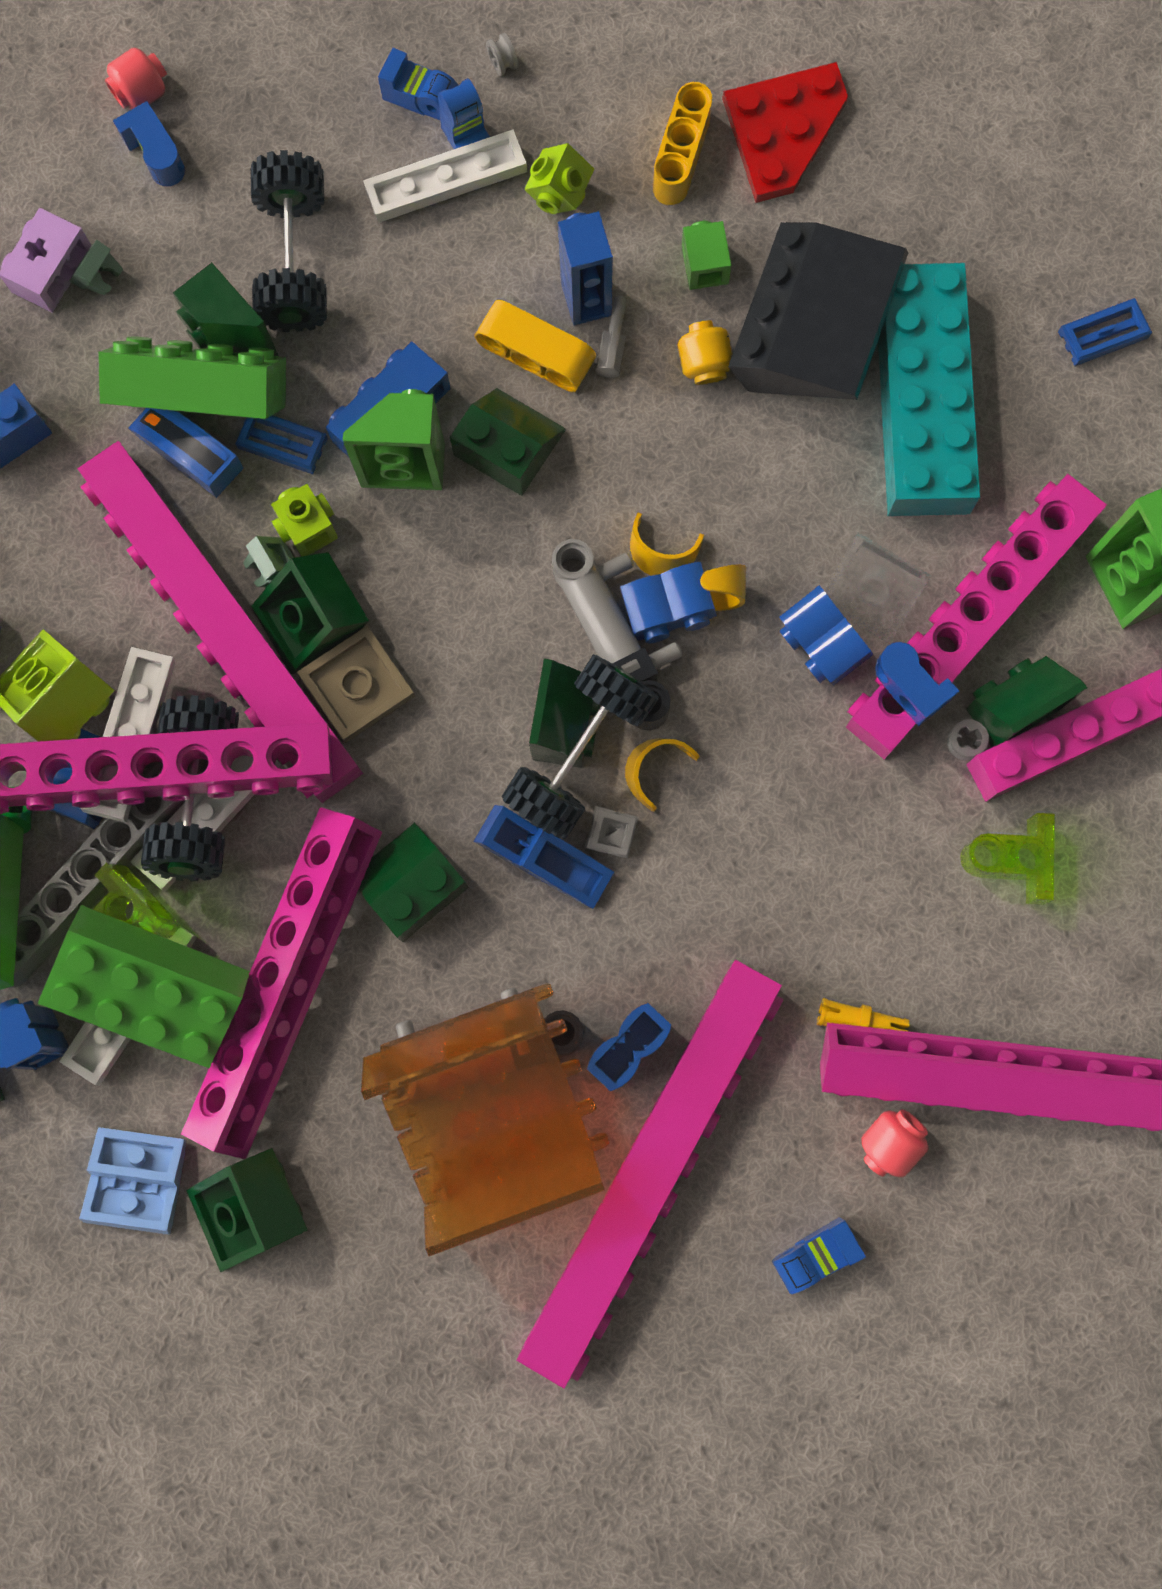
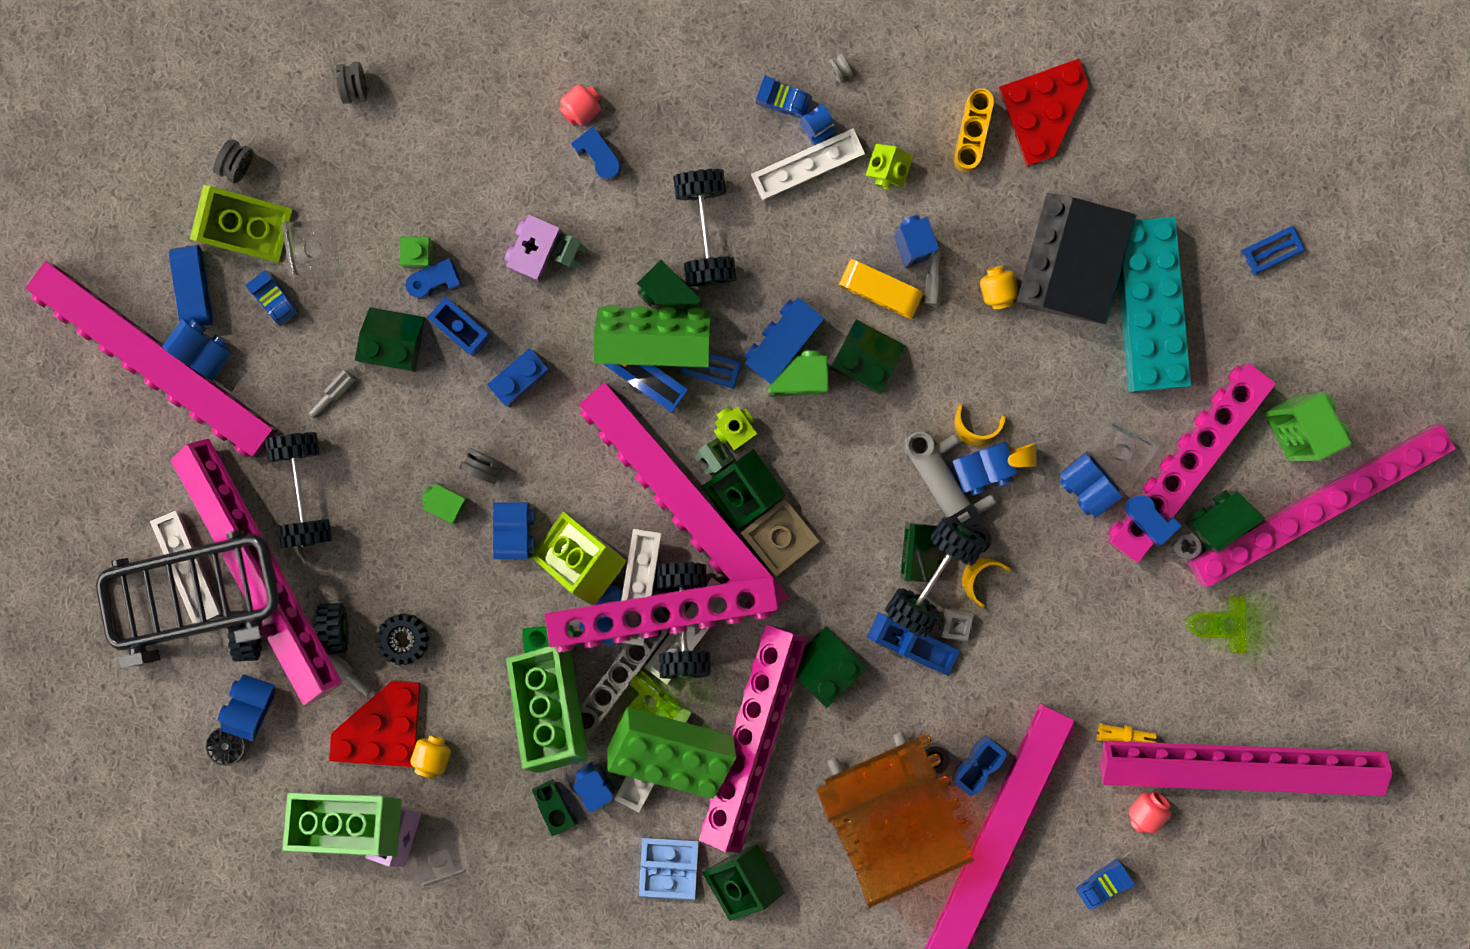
camera: 10 degrees left, 10 degrees up
(706, 254) = (995, 213): bright green brick -> none

